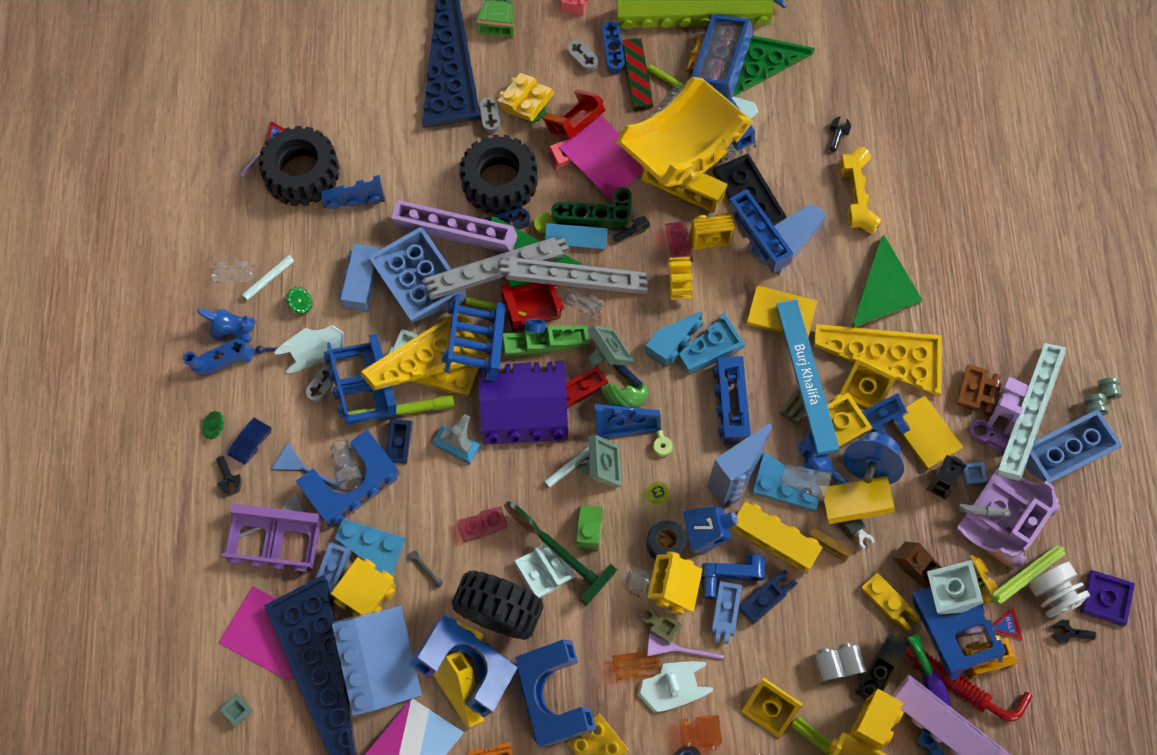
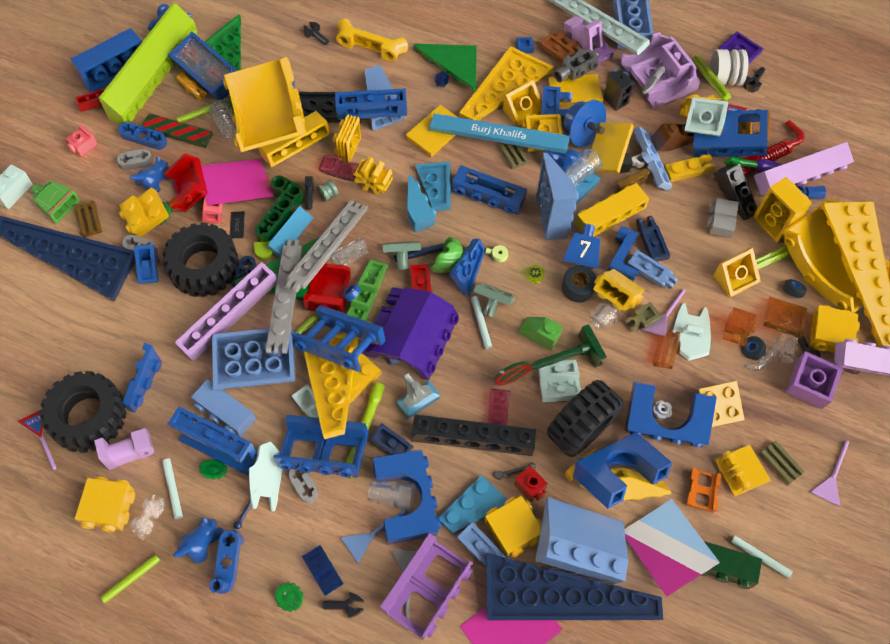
camera: 65 degrees left, 5 degrees down
(175, 290) = (130, 578): none -> lime bar
(225, 232) = (105, 504): none -> yellow brick
(288, 225) = (126, 450): none -> lavender piece
(317, 284) = (213, 440): none -> blue window
(415, 588) = (531, 484): none -> red brick
(440, 511) = (473, 435): none -> black brick
(472, 129) = (146, 263): none -> blue slope
(493, 54) = (85, 207): none -> pearl gold tile
(561, 185) = (237, 224): none -> black sticker
(567, 691) = (662, 414): none -> white plate
(568, 81) = (152, 175): none -> blue animal
(643, 245) = (327, 190): none -> sand green wheel
(852, 286) = (441, 79): none -> clear blue plate
(875, 555) = (651, 156): none -> light blue hinge
(953, 418) = (577, 65): none -> dark grey brick
(957, 350) = (525, 44): none -> blue tile

